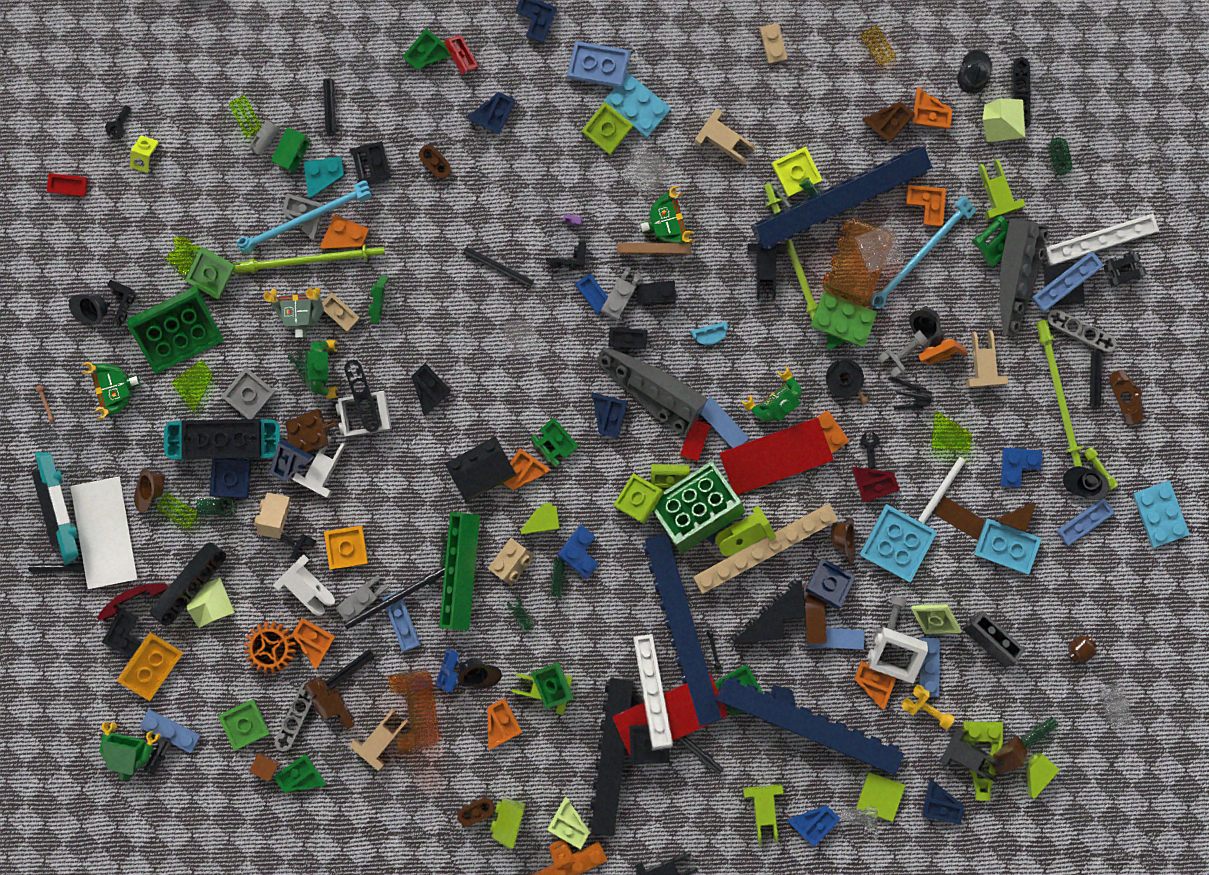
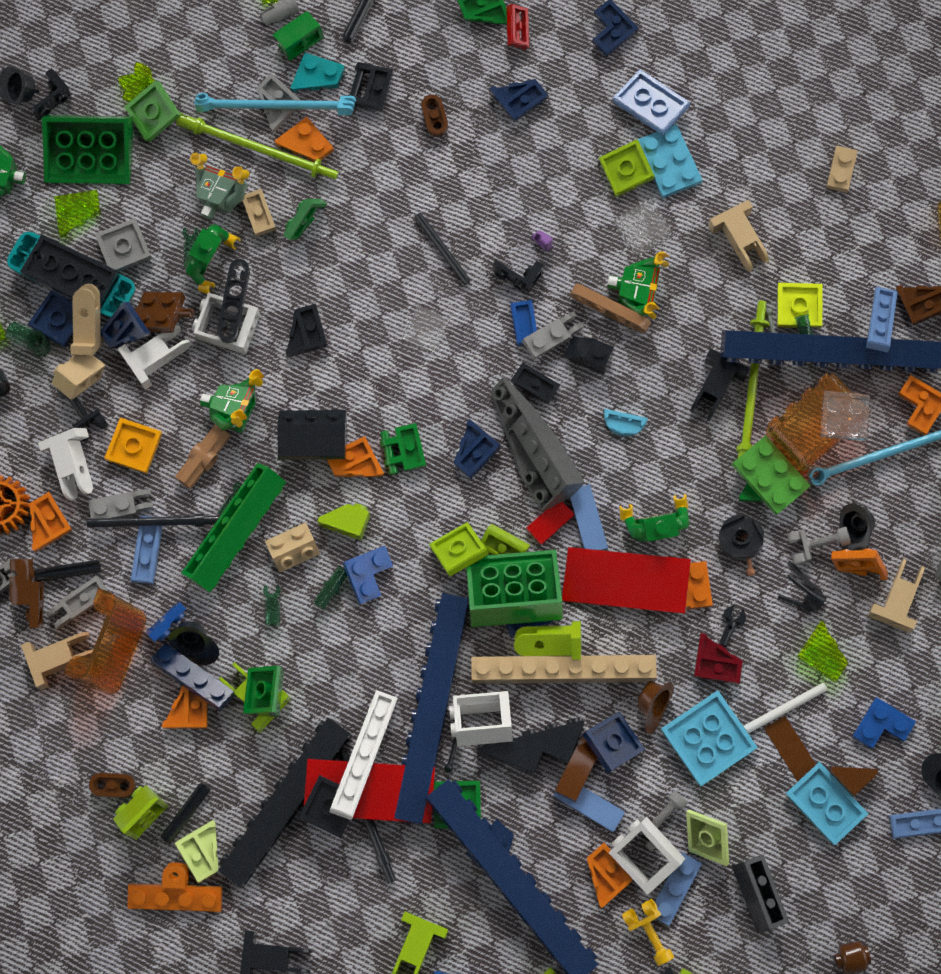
camera: 35 degrees right, 10 degrees down
(257, 472) = (86, 324): none -> tan piece
(373, 687) = (76, 602): none -> light grey hinge
(404, 528) = (202, 457): none -> medium nougat piece
(405, 475) = (233, 403): none -> green torso
(491, 701) = (192, 677): none -> plate
(541, 802) = (185, 813): none -> black axle
(718, 605) = (481, 704): none -> white window
(866, 153) = (881, 319): none -> medium blue tile

